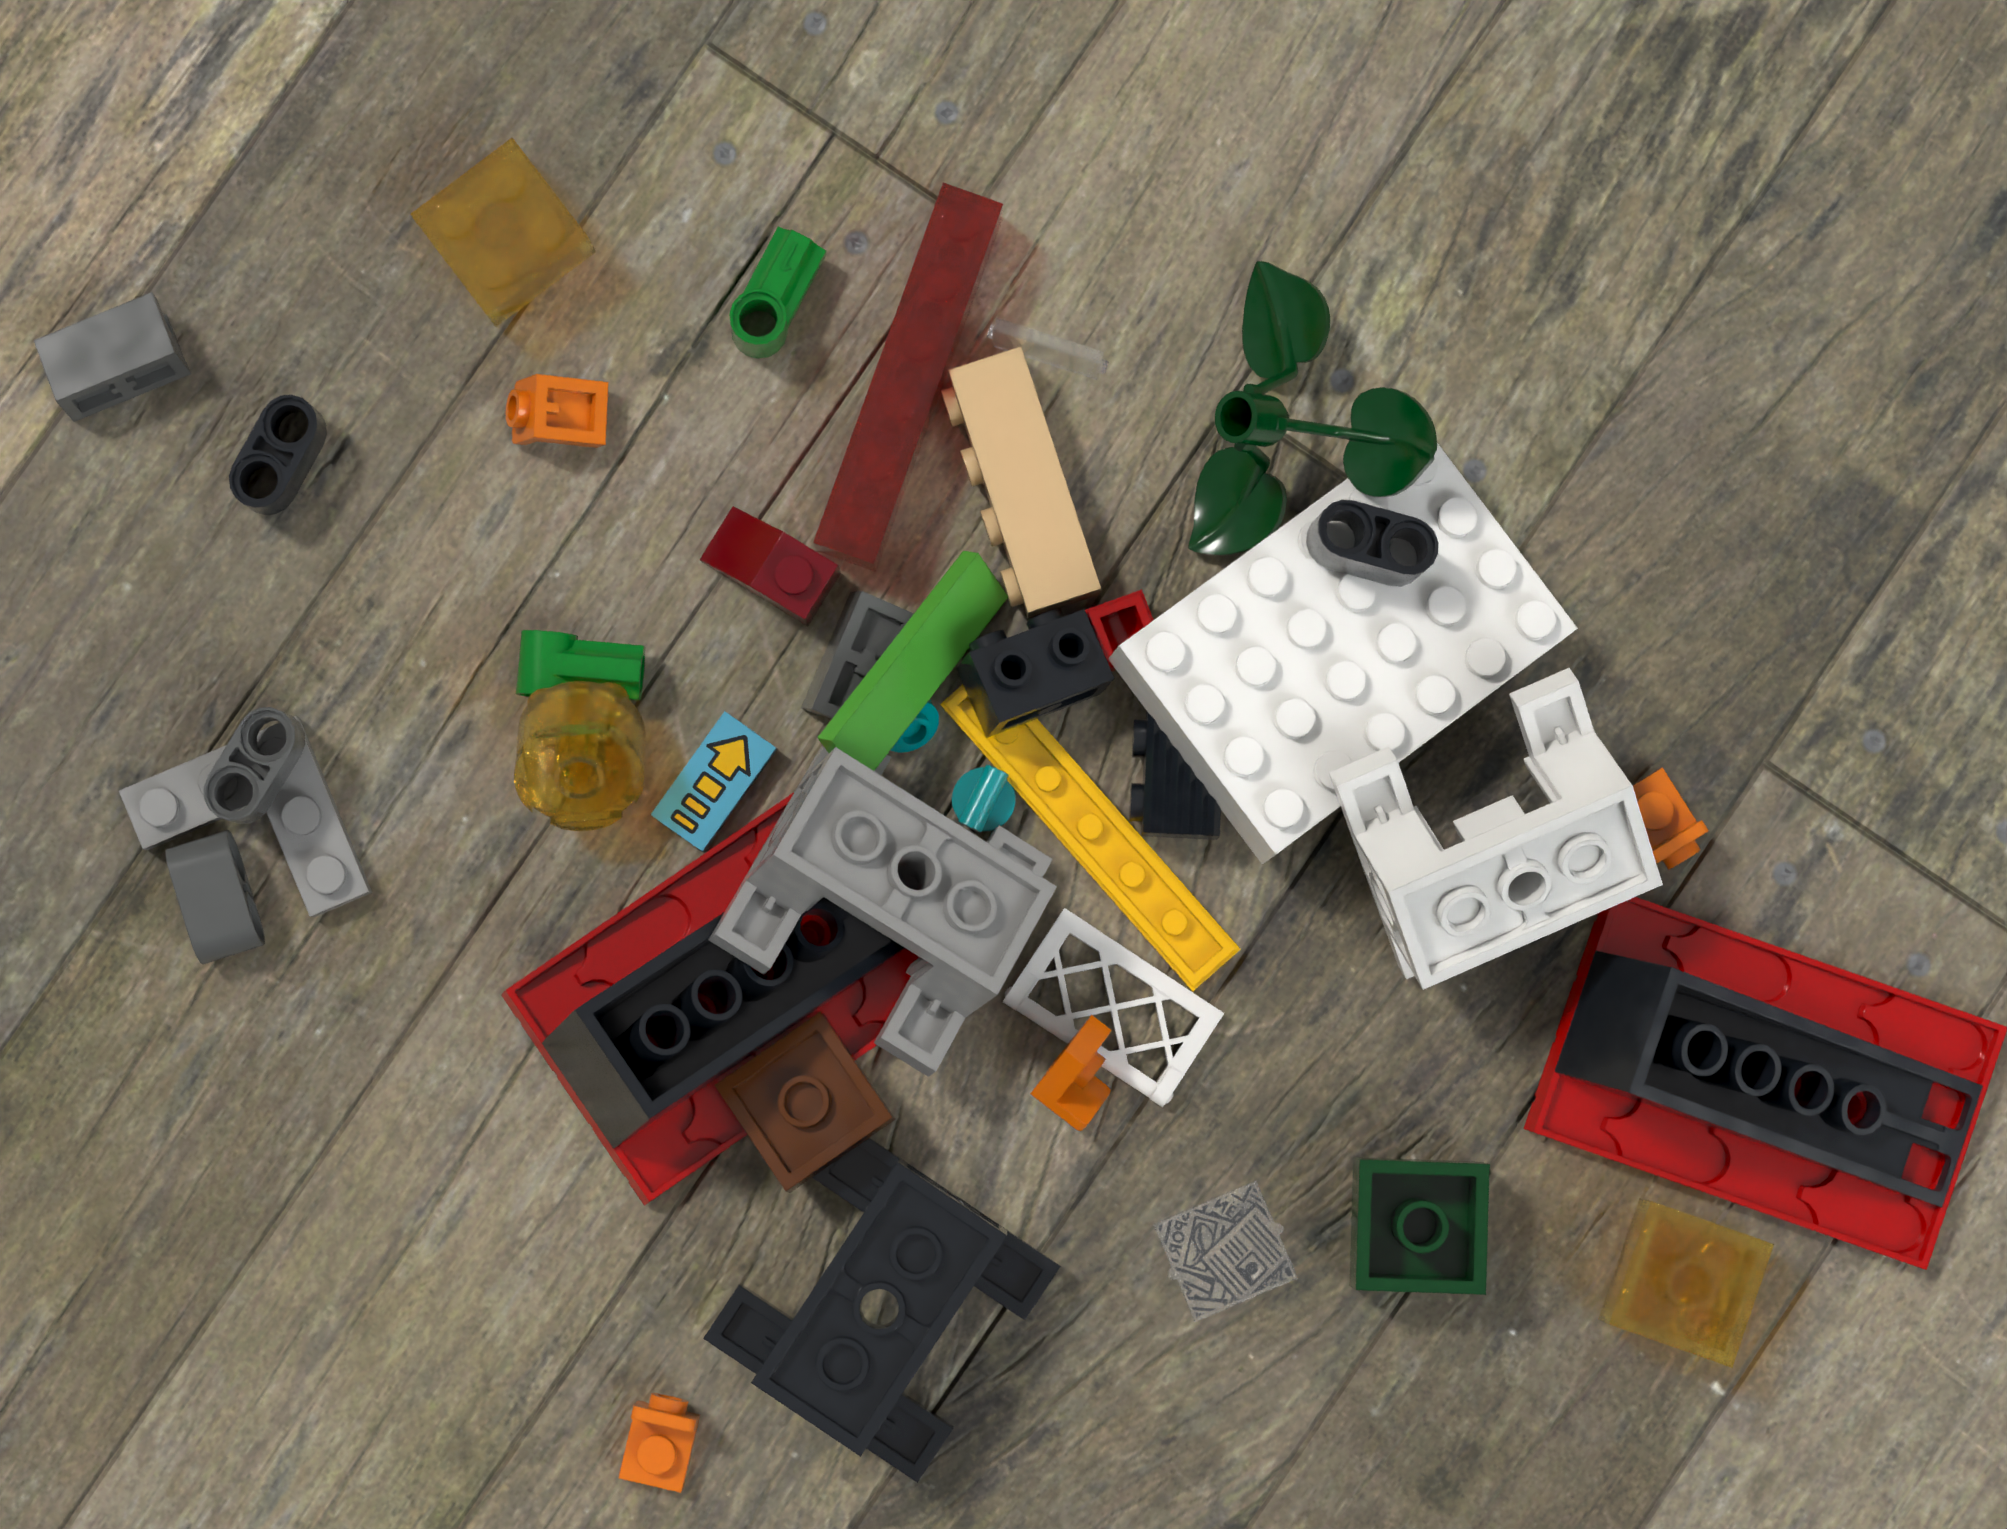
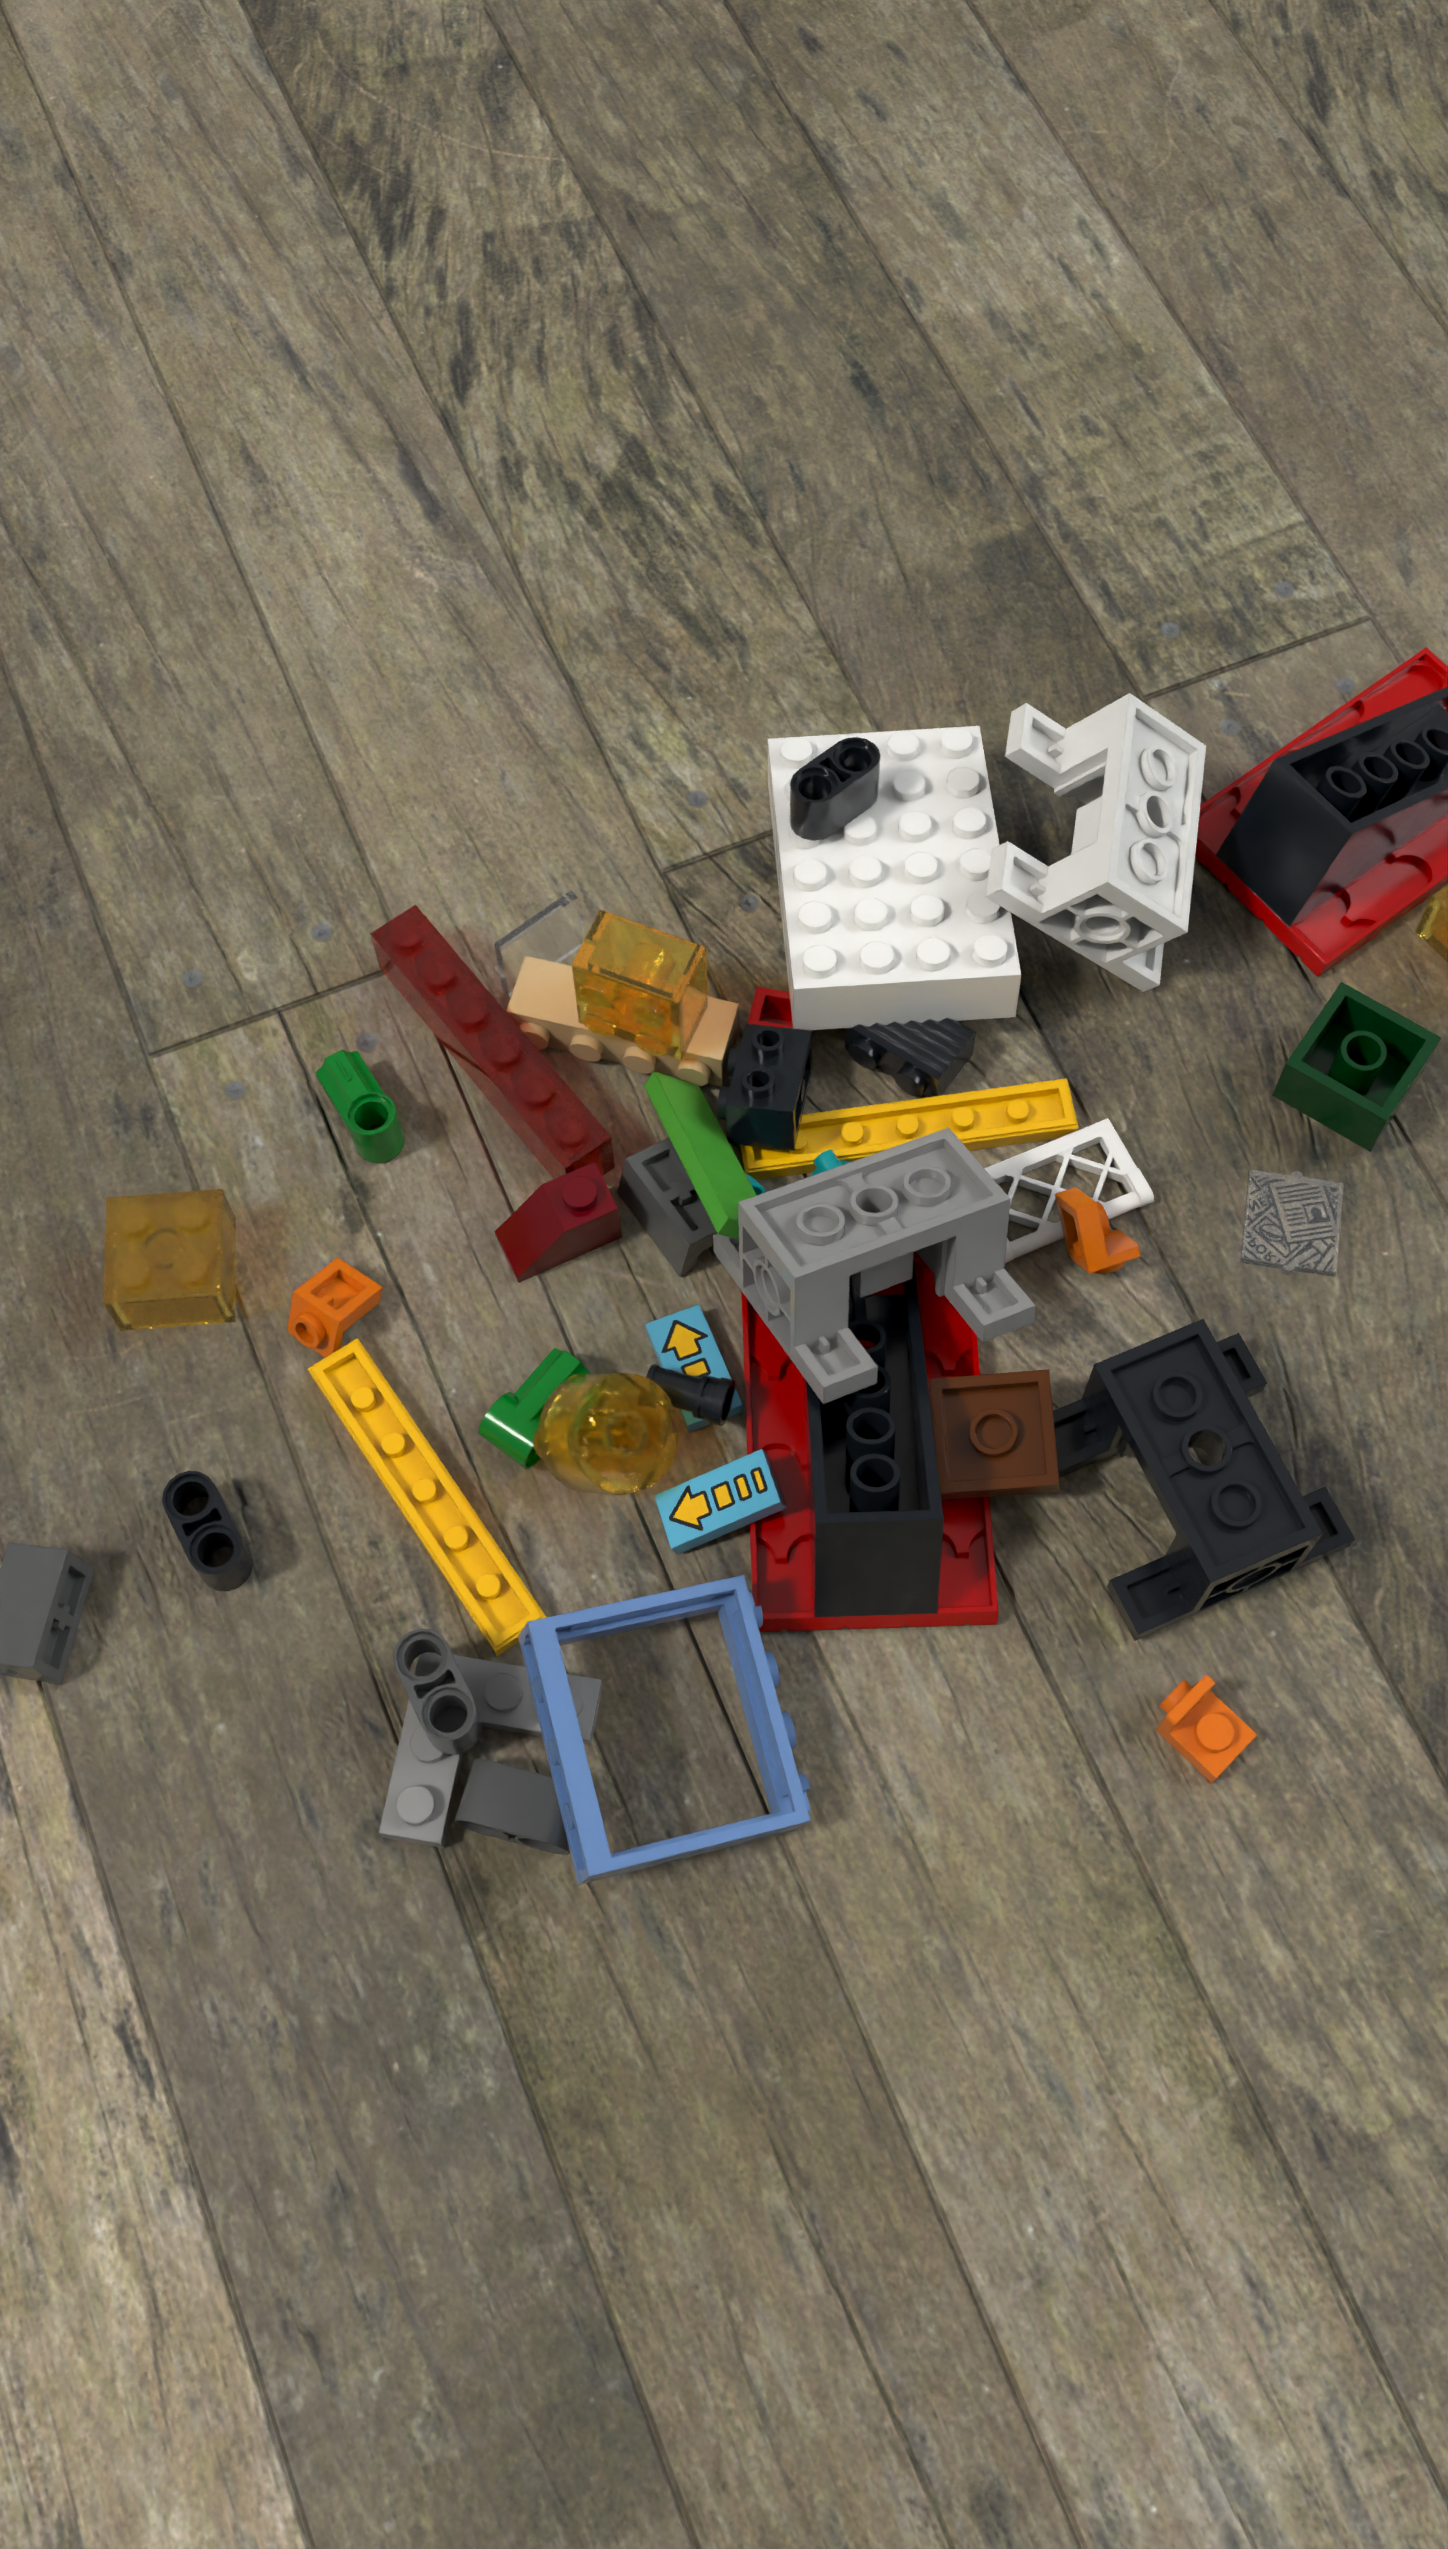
camera: 55 degrees left, 20 degrees down
(414, 1068) = (756, 1680): none -> medium blue window
(441, 619) = (426, 1495): none -> yellow tile
(593, 892) = (720, 1501): none -> medium azure tile
(677, 813) = (705, 1397): none -> black pin
(1029, 496) = (640, 985): none -> clear yellow brick
(1388, 441) = (635, 804): dark green plant -> none

